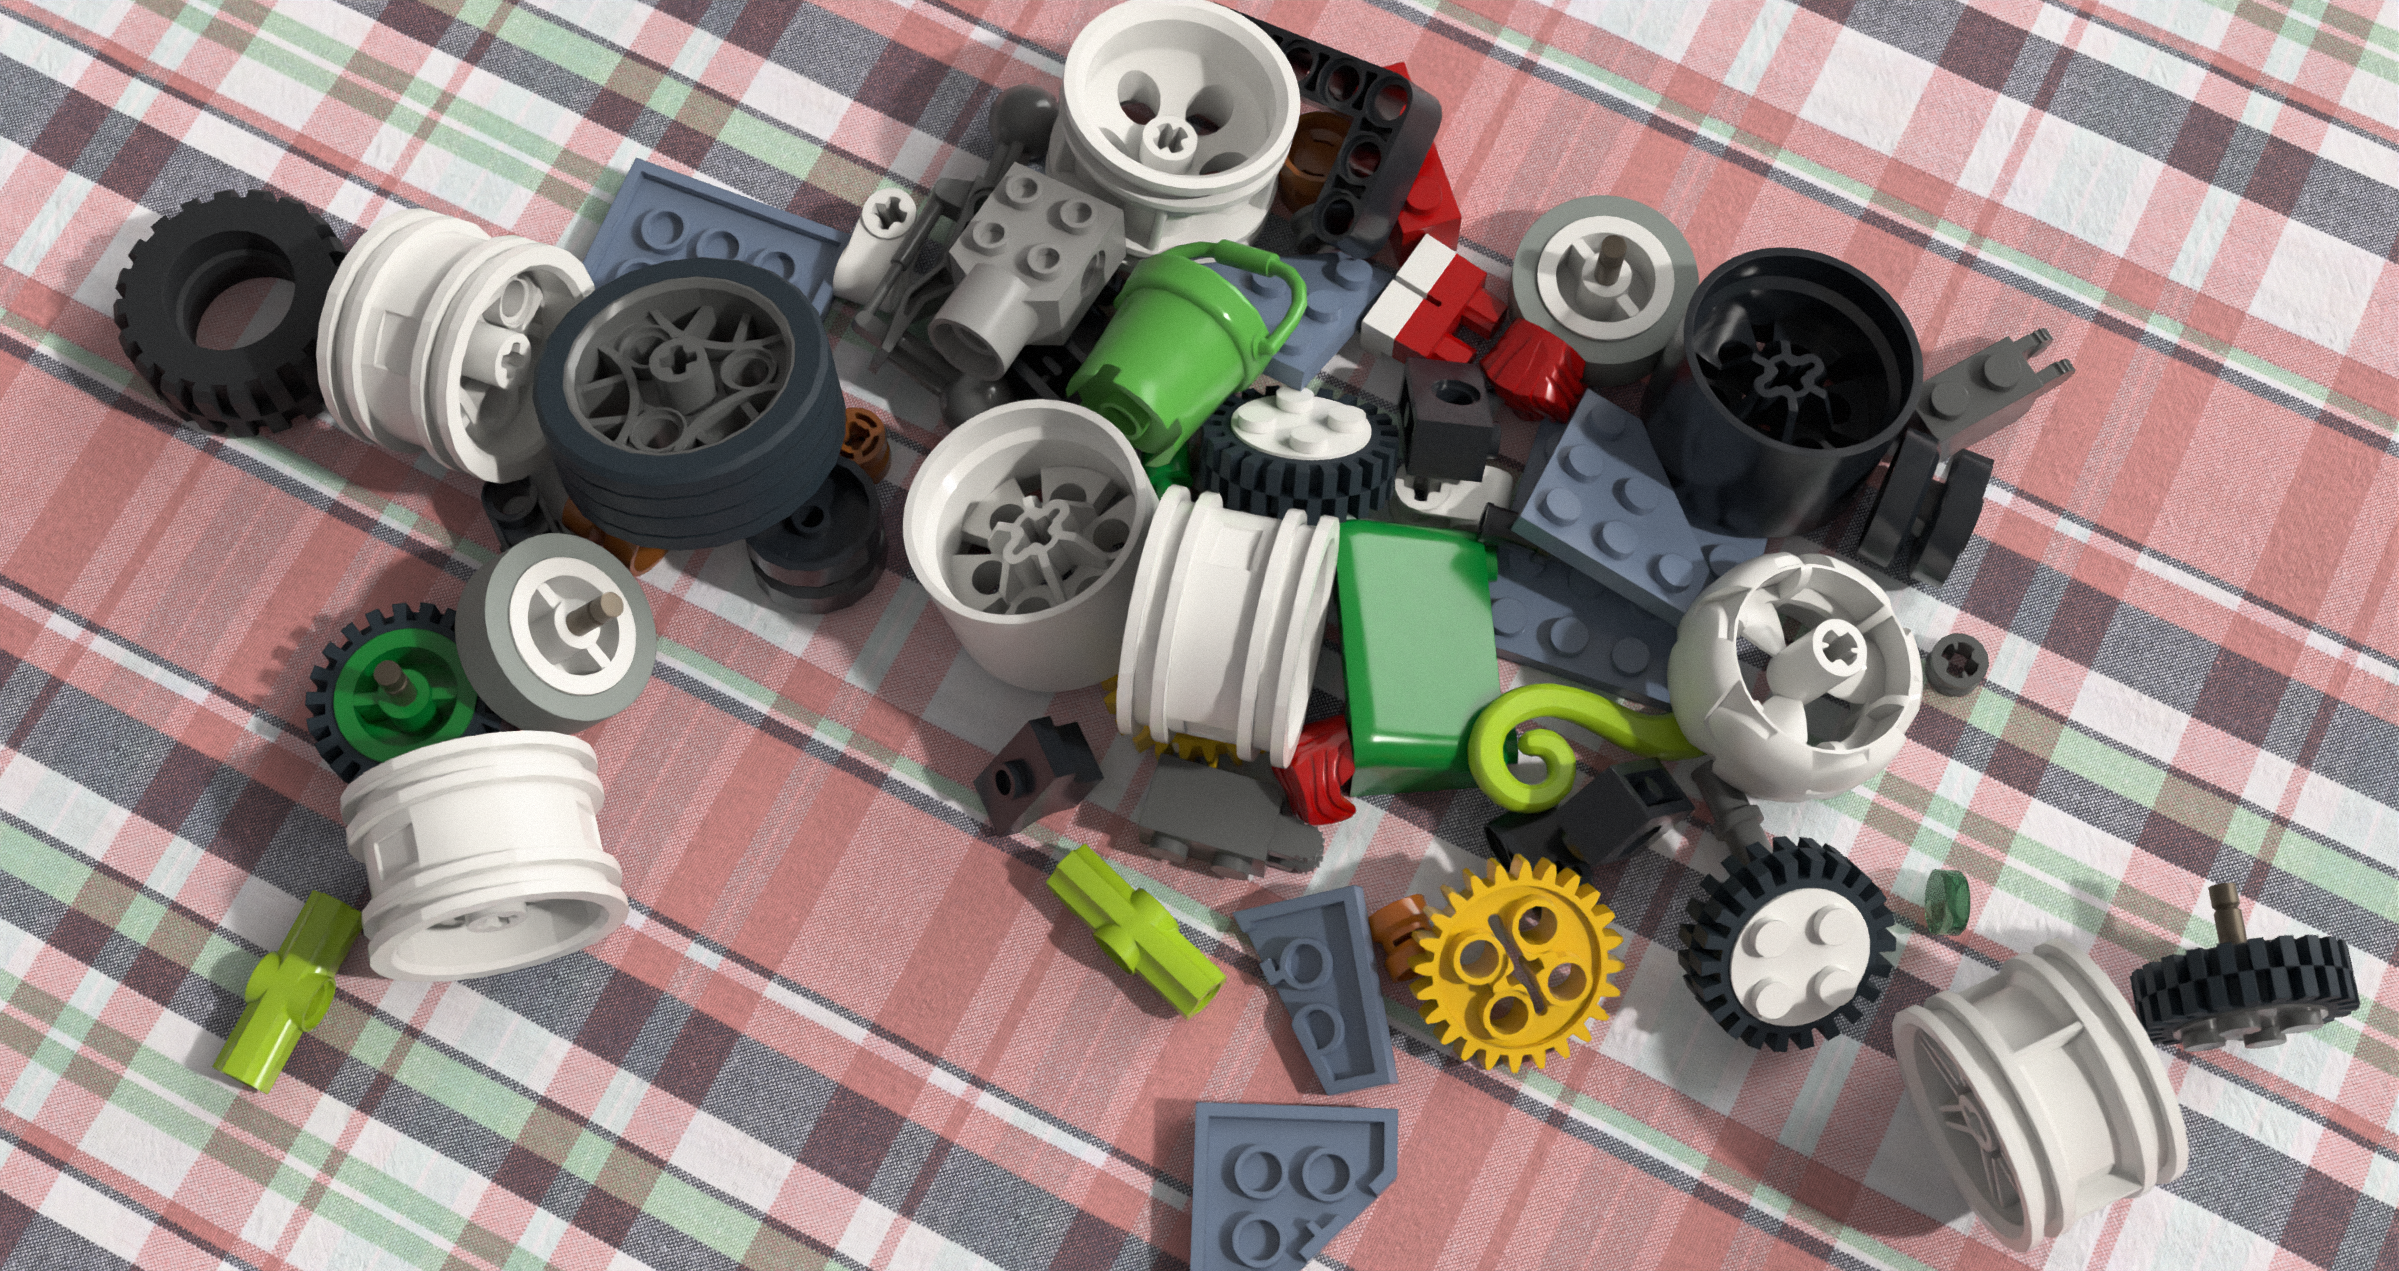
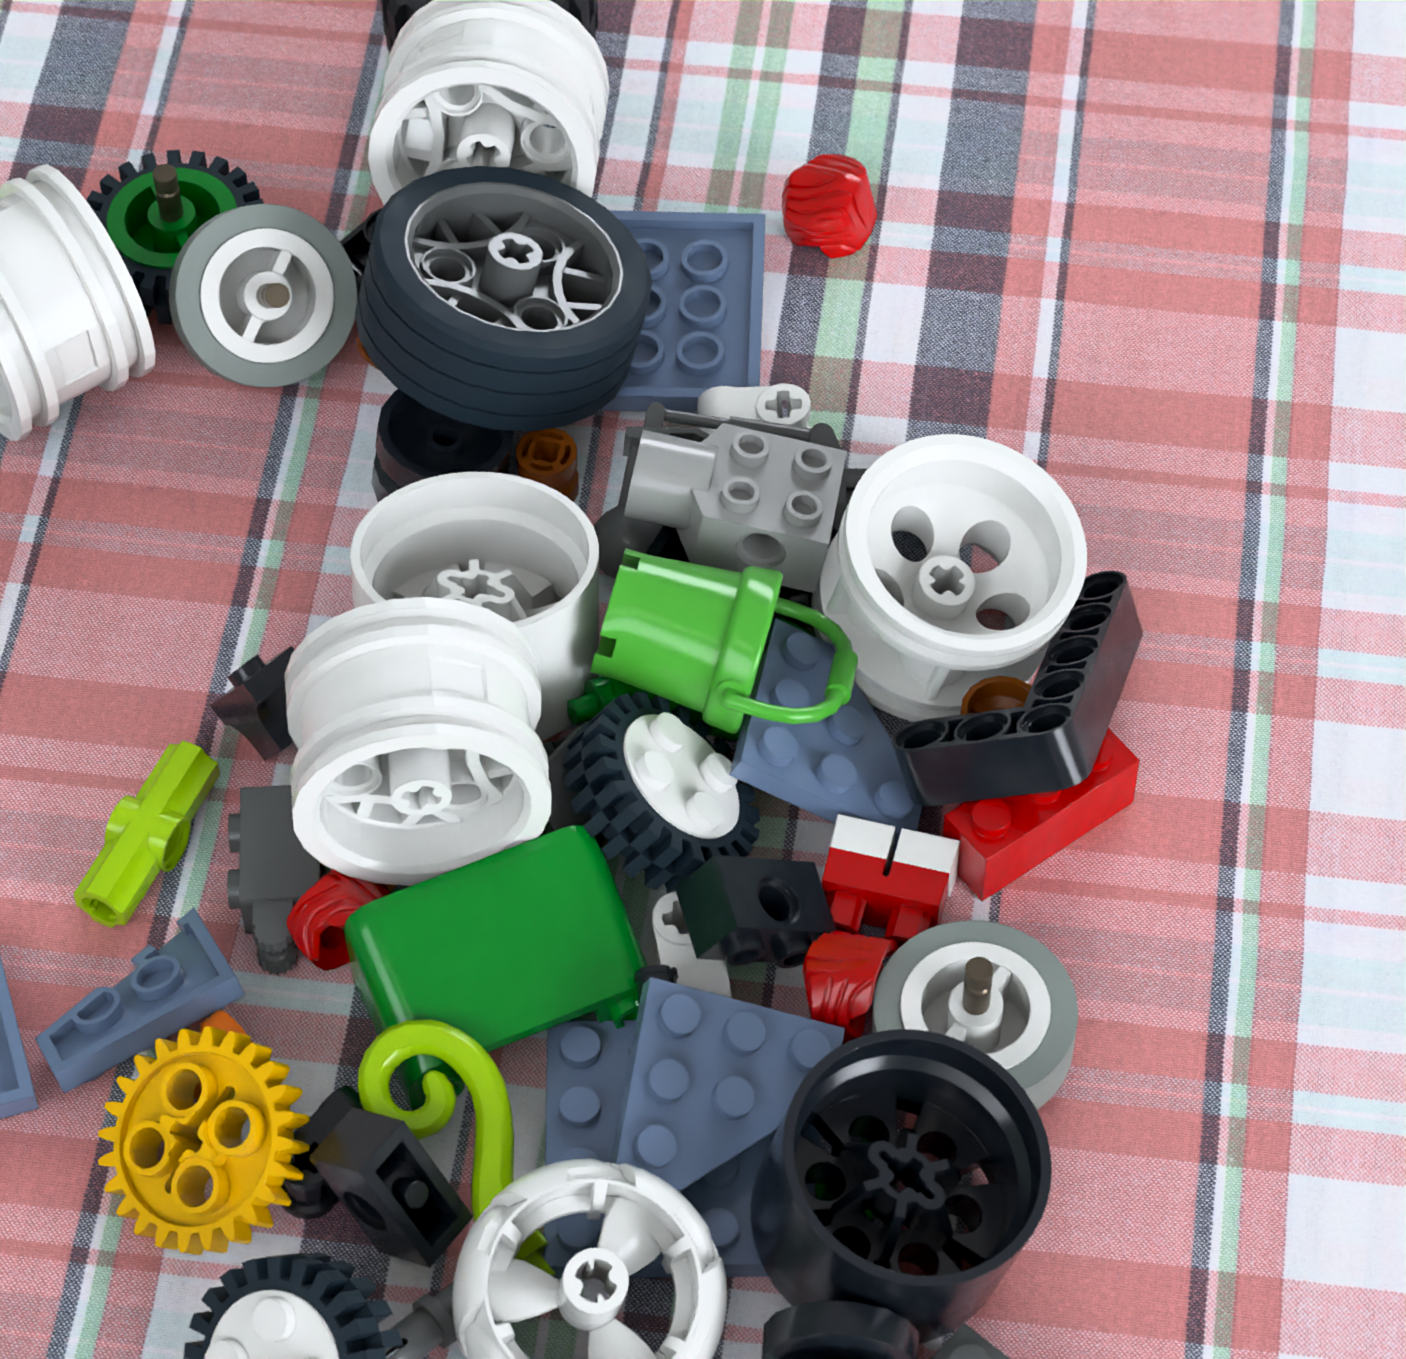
camera: 70 degrees right, 15 degrees down
(642, 101) = (829, 205): none -> red hair

